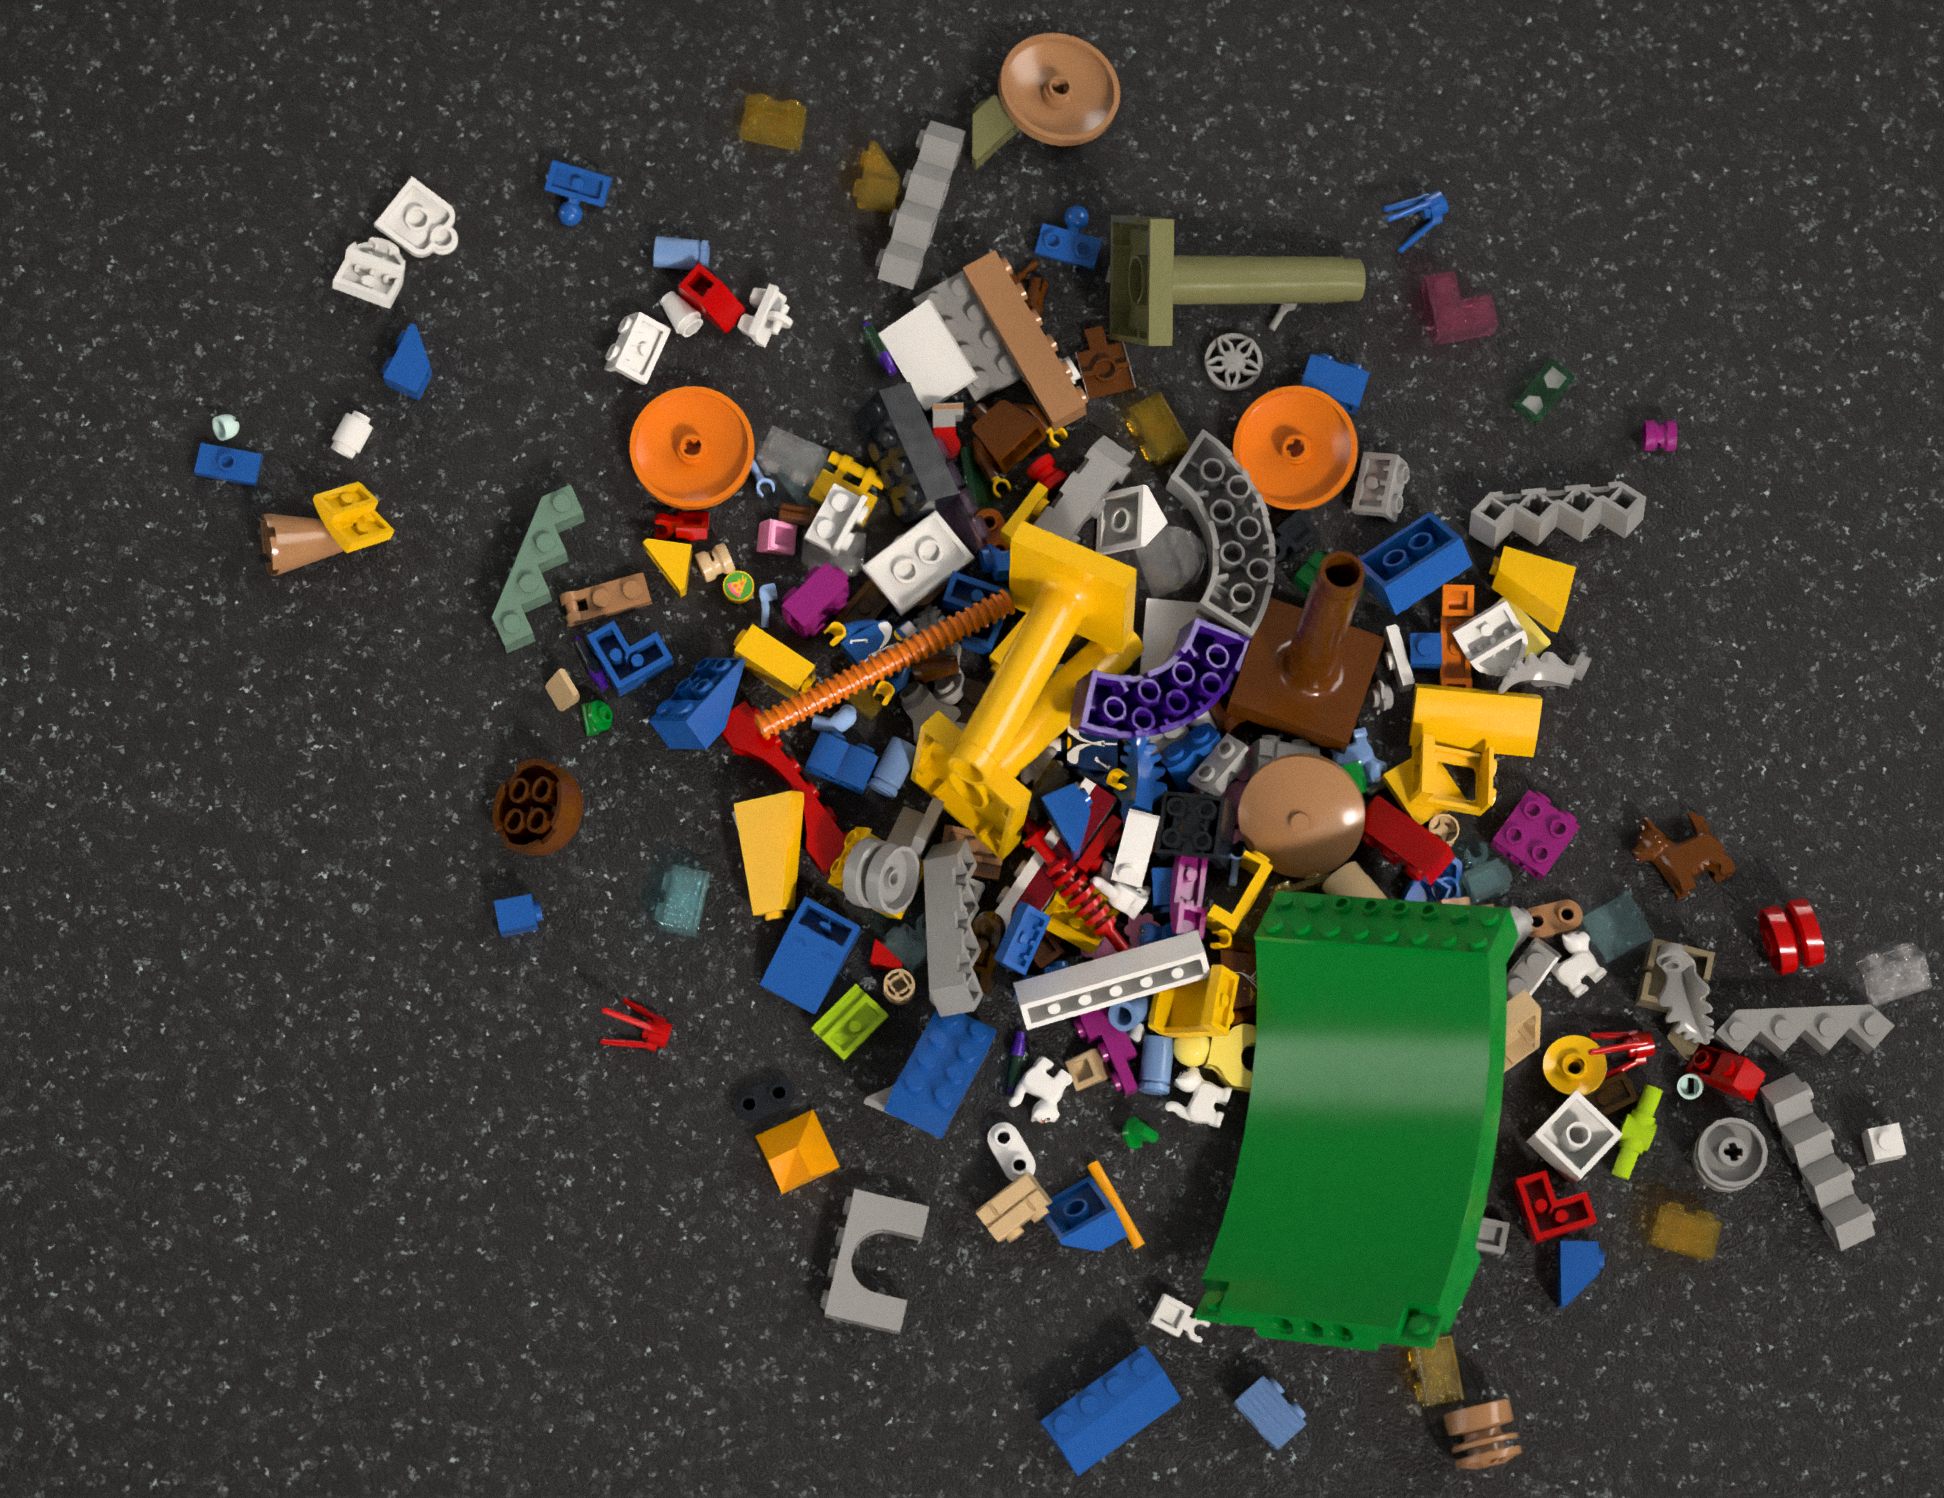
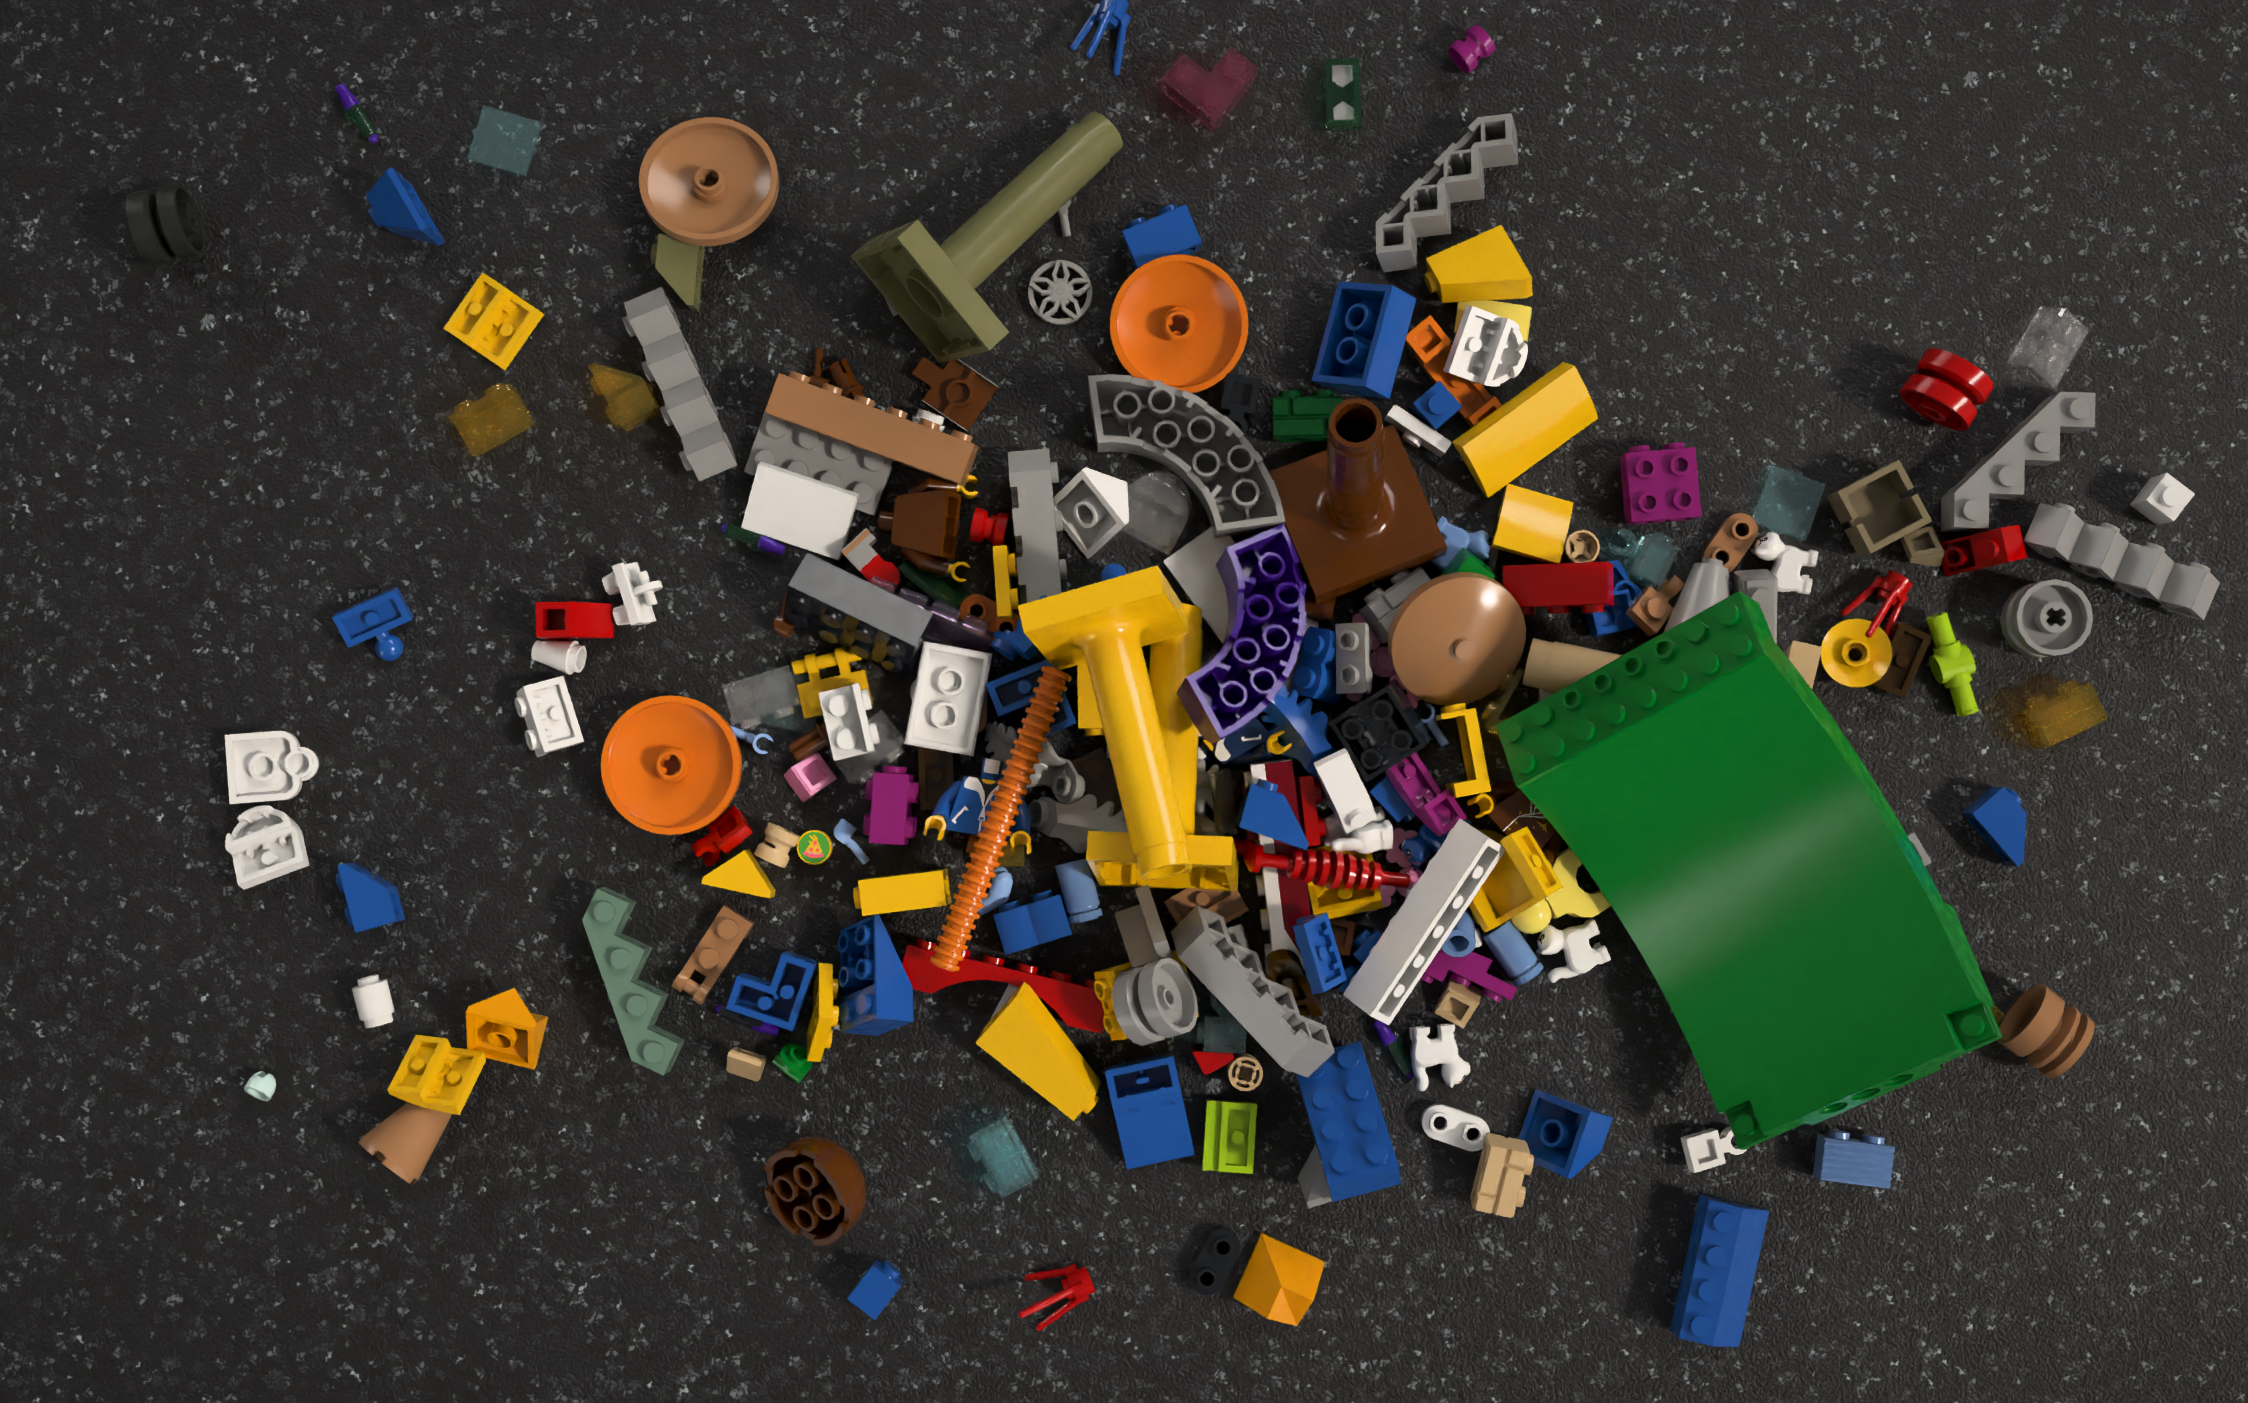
camera: 35 degrees left, 10 degrees up
(228, 464) = (292, 1115): blue plate -> none
(423, 528) = (505, 1029): none -> light orange slope
(648, 698) = (824, 1012): none -> yellow plate
(680, 253) = (513, 602): medium blue piece -> none
(832, 60) = (493, 321): none -> yellow slope
(848, 422) = (782, 624): none -> reddish brown hand
(868, 1216) = (1429, 1367): light grey arch -> none
(935, 667) = (1044, 777): reddish brown cone -> none
(1069, 244) = (834, 310): blue plate -> none
(1103, 1182) = (1577, 1095): light orange bar -> none
(1136, 1132) = (1543, 1023): green plate -> none
(1157, 430) = (1048, 408): clear yellow brick -> none
(1380, 485) = (1275, 294): light grey bracket -> none
(1380, 697) = (1431, 477): light grey plate -> none
(1423, 776) = (1524, 512): yellow window -> none
(1544, 1215) = (1942, 800): red brick -> none
(1546, 671) = (1552, 334): light grey plant -> none
(1574, 1138) = (1910, 716): white slope -> none
(1683, 1086) = (1968, 580): light aqua hinge -> none
(1684, 860) = (1801, 397): reddish brown animal -> none
(1684, 994) = (1907, 518): light grey plant -> none

